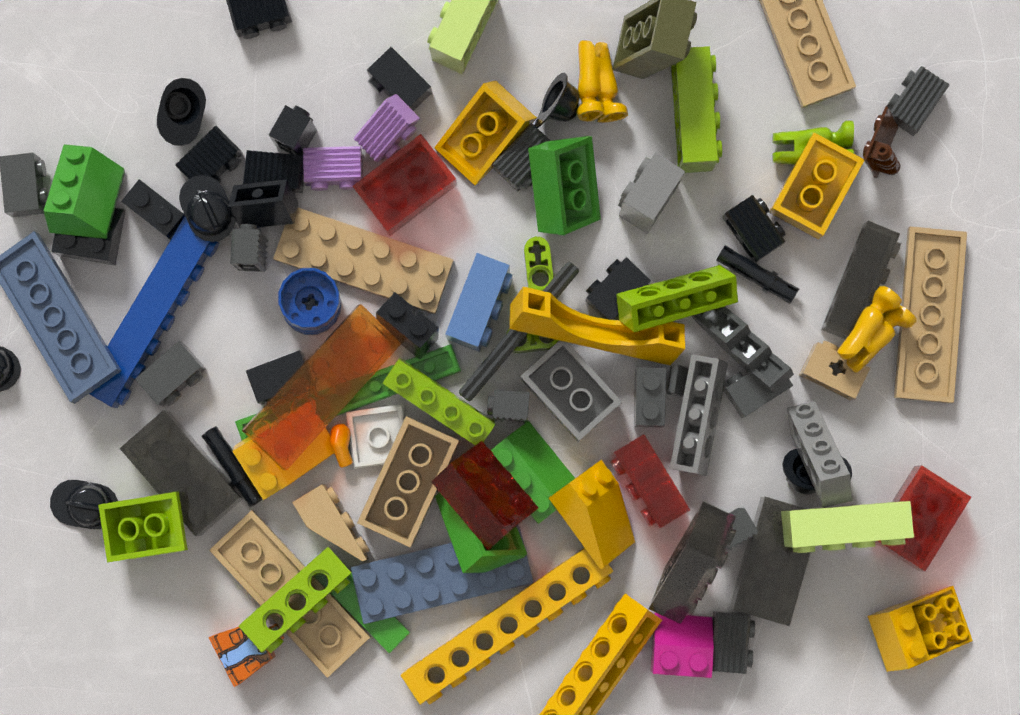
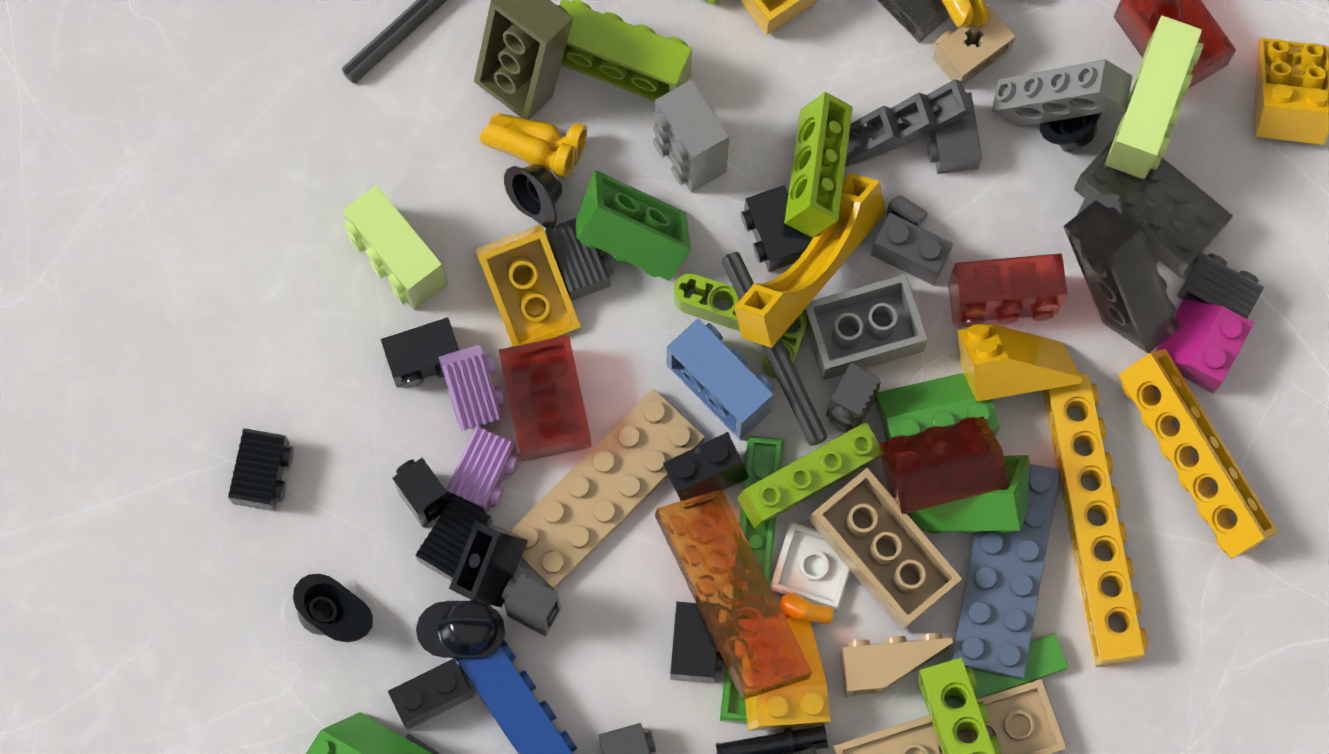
camera: 70 degrees left, 10 degrees down
(211, 156) = (400, 602): black brick -> none
(298, 289) = (625, 544): blue wheel -> none
(699, 415) = (956, 205): light grey brick -> none
(754, 228) = (778, 56): black brick -> none
(762, 277) = (841, 69): black pin -> none

